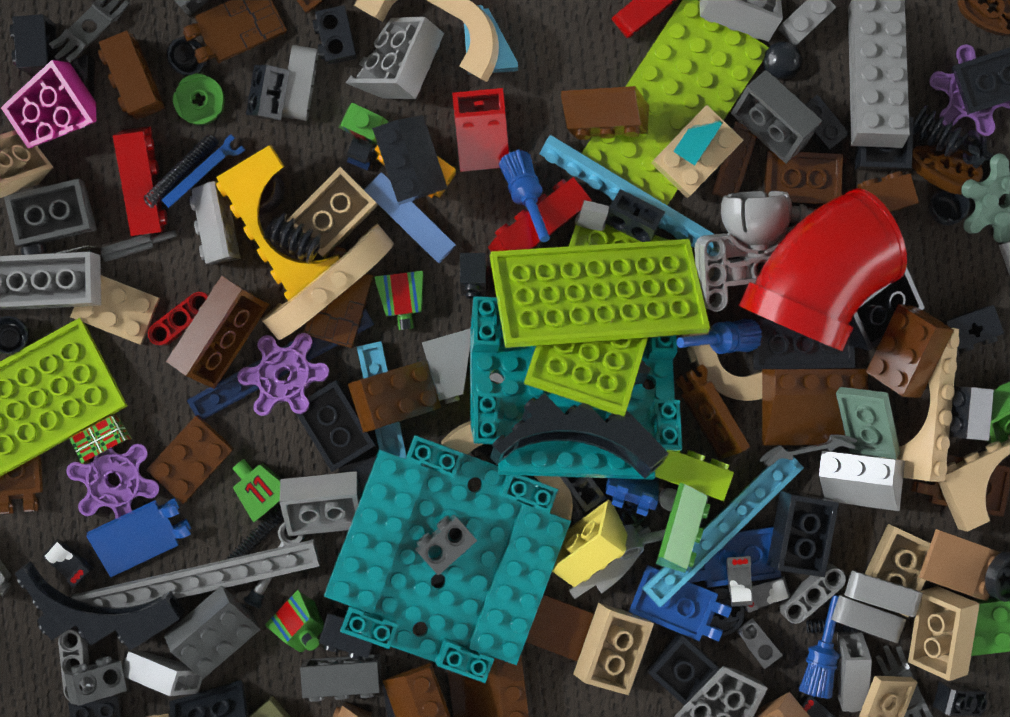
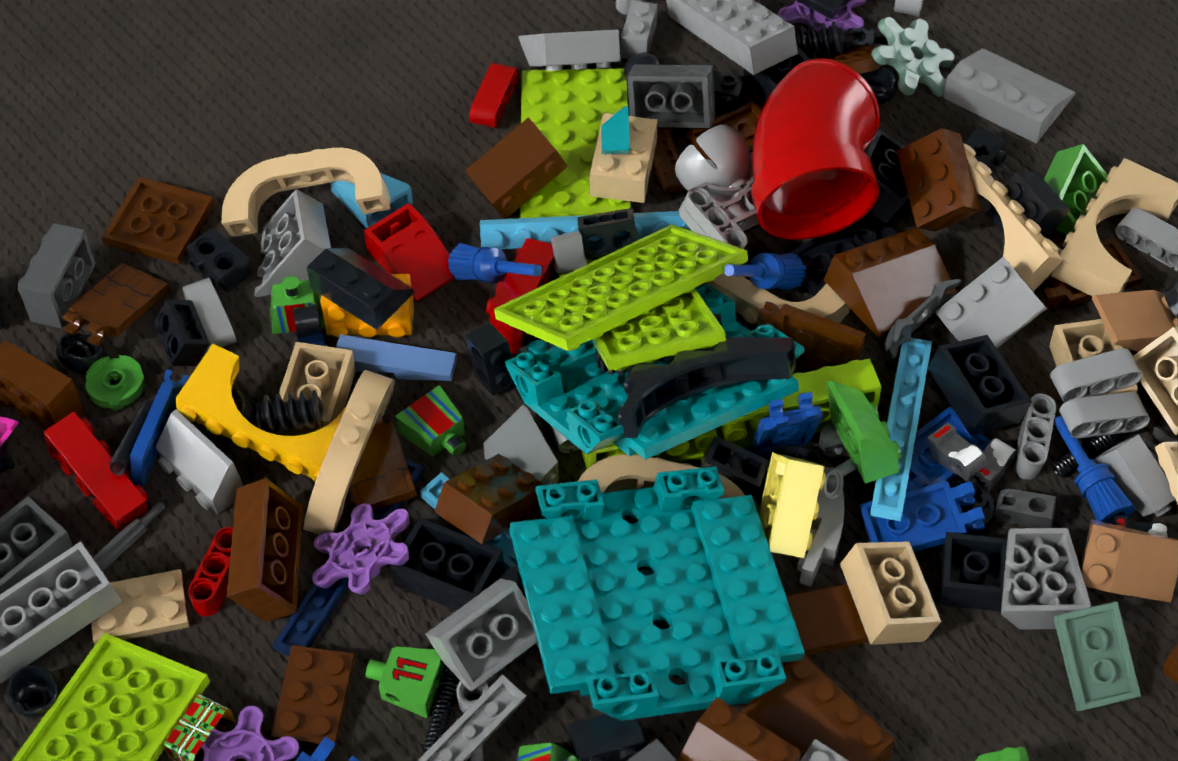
camera: 30 degrees left, 35 degrees down
(449, 549) = (645, 569): dark grey brick -> none
(870, 421) = (950, 250): sand green plate -> none

